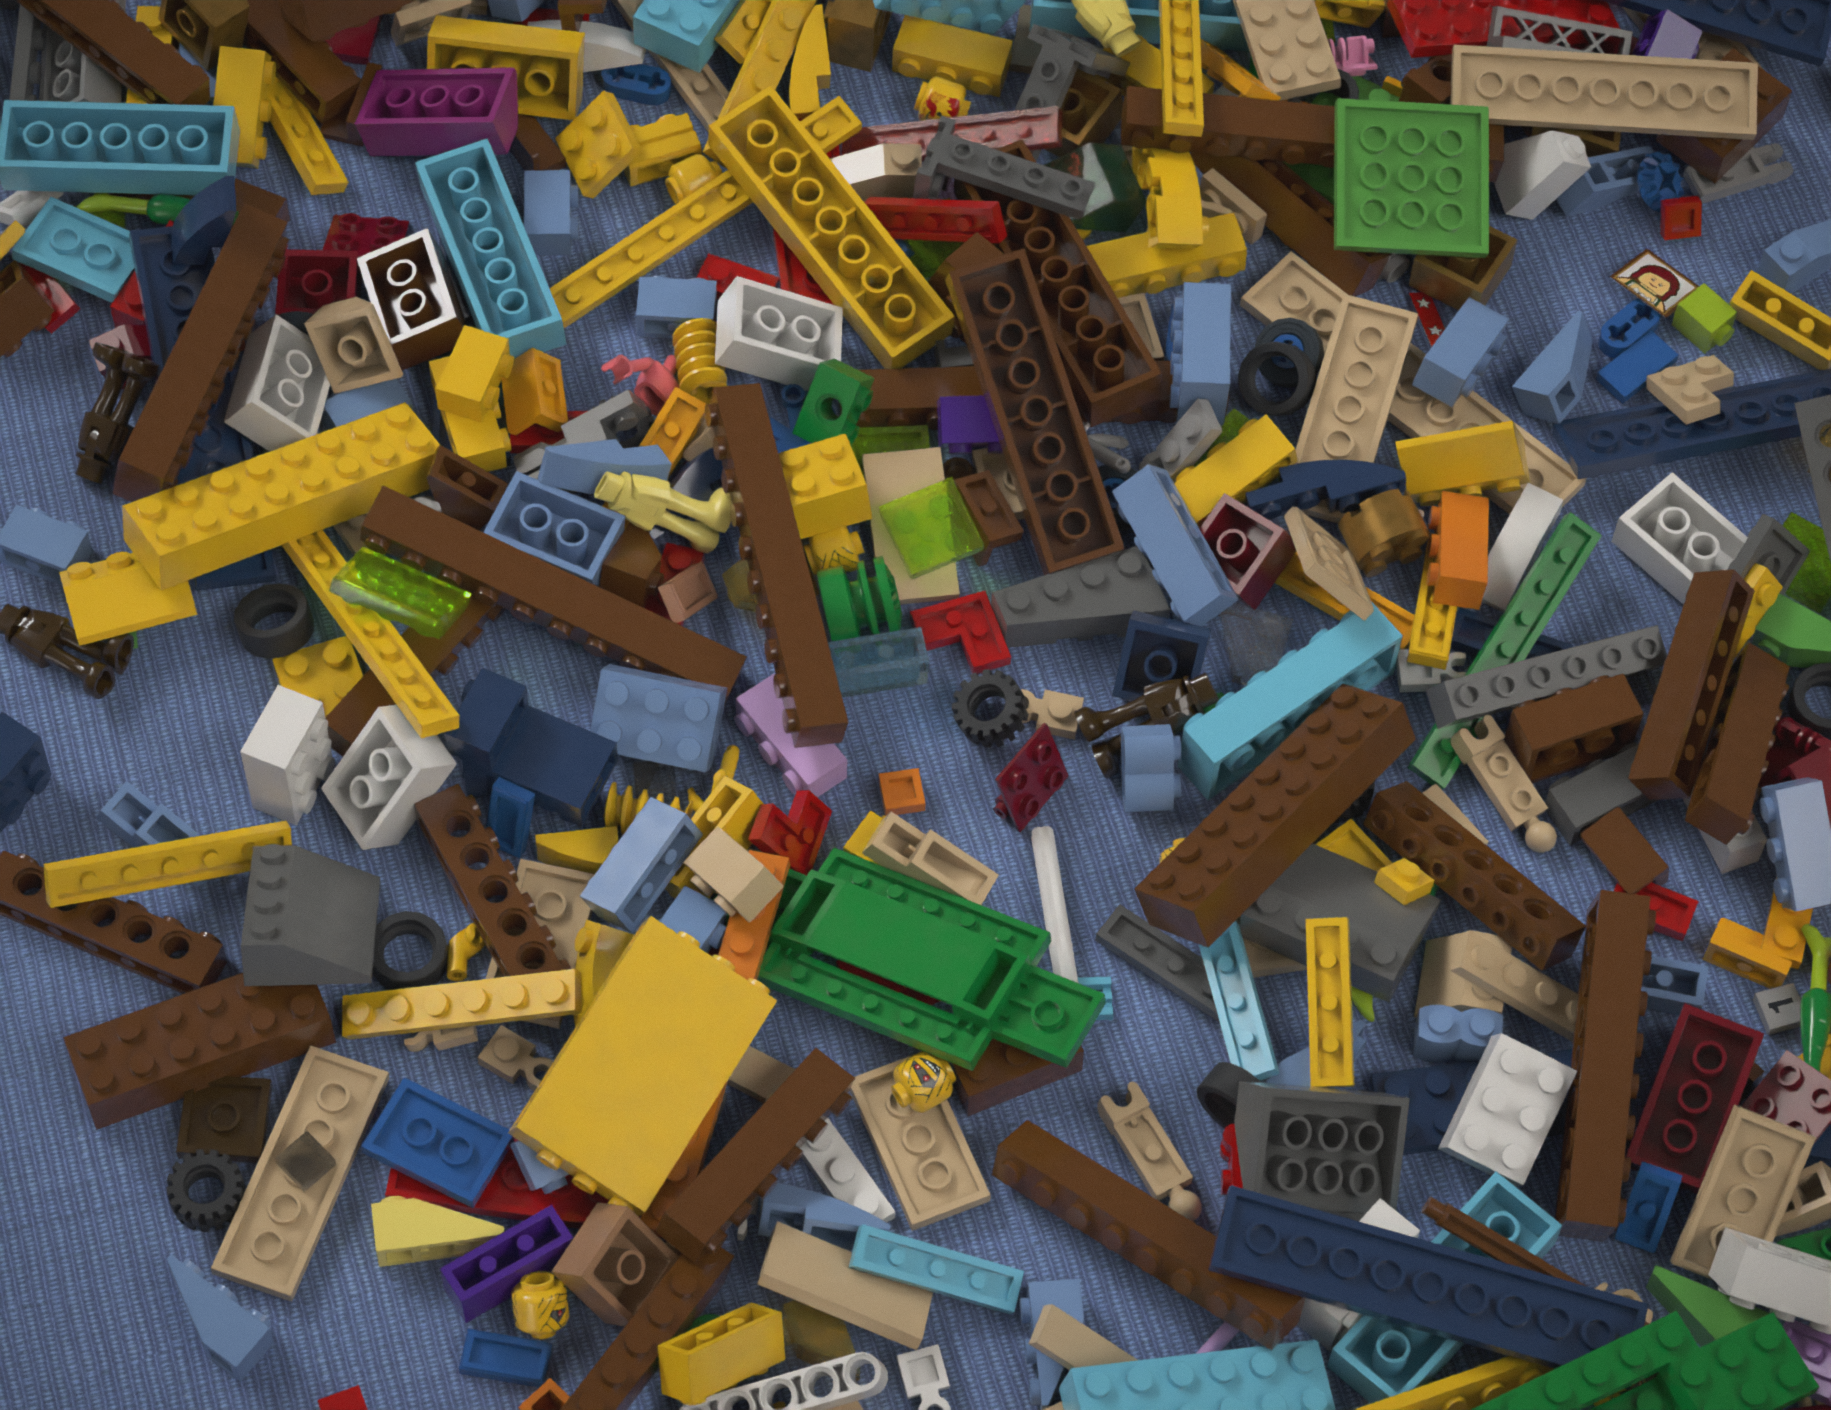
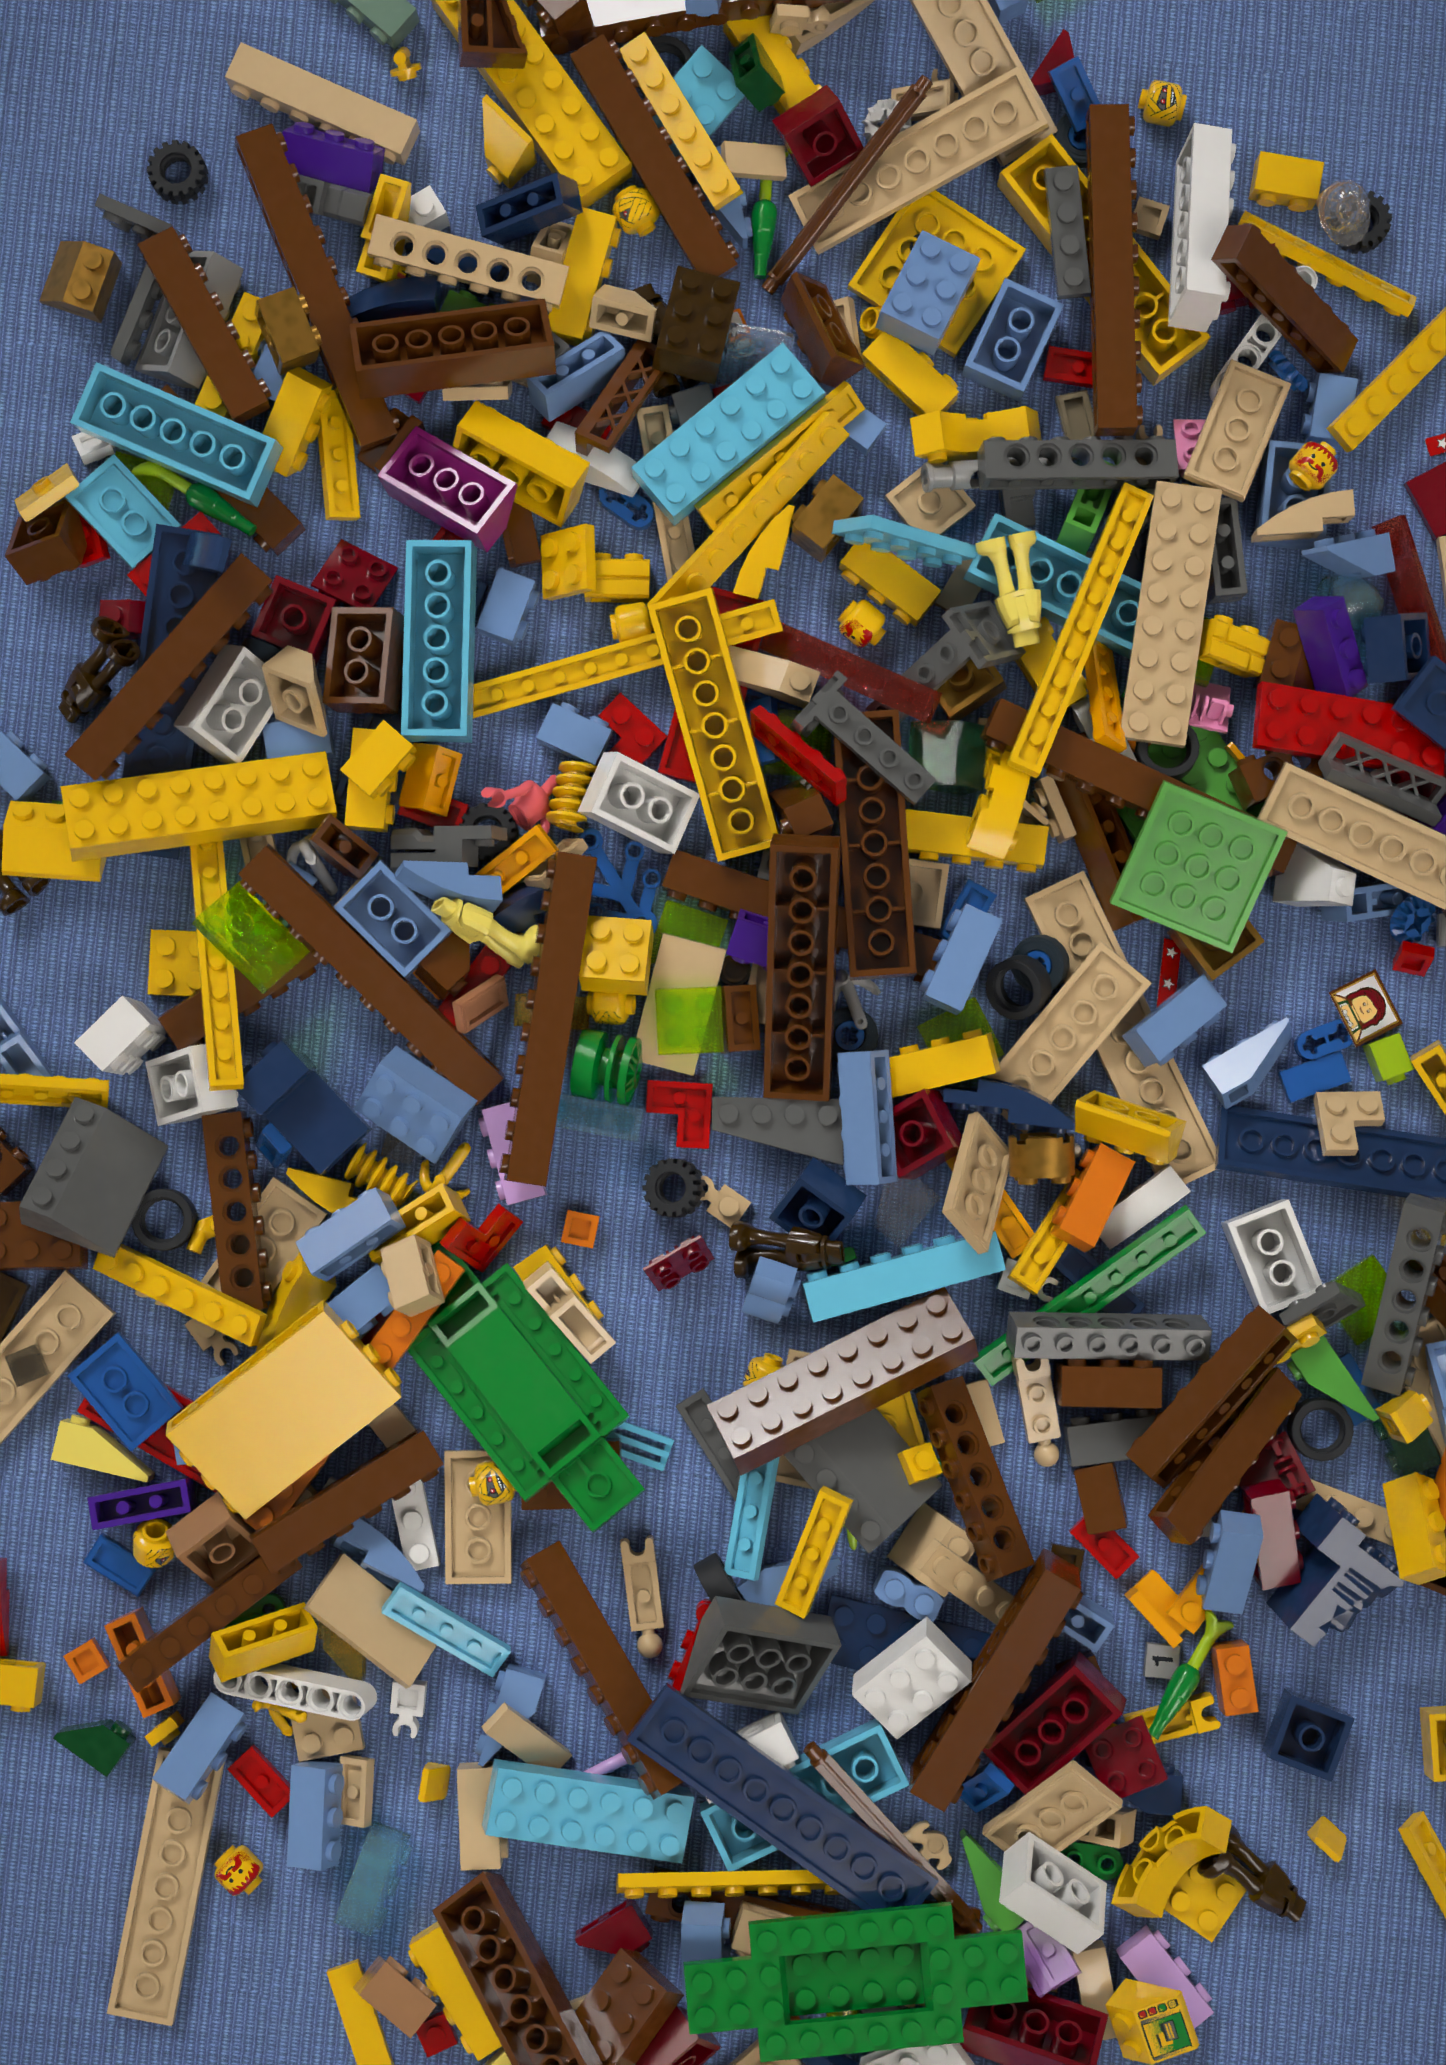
camera: 25 degrees right, 25 degrees up
(277, 641) = (152, 881): black tyre -> none
(846, 385) = (654, 887): green brick -> none
(1053, 902) = (652, 1378): white axle -> none
(1186, 440) = (914, 1025): light grey hinge -> none

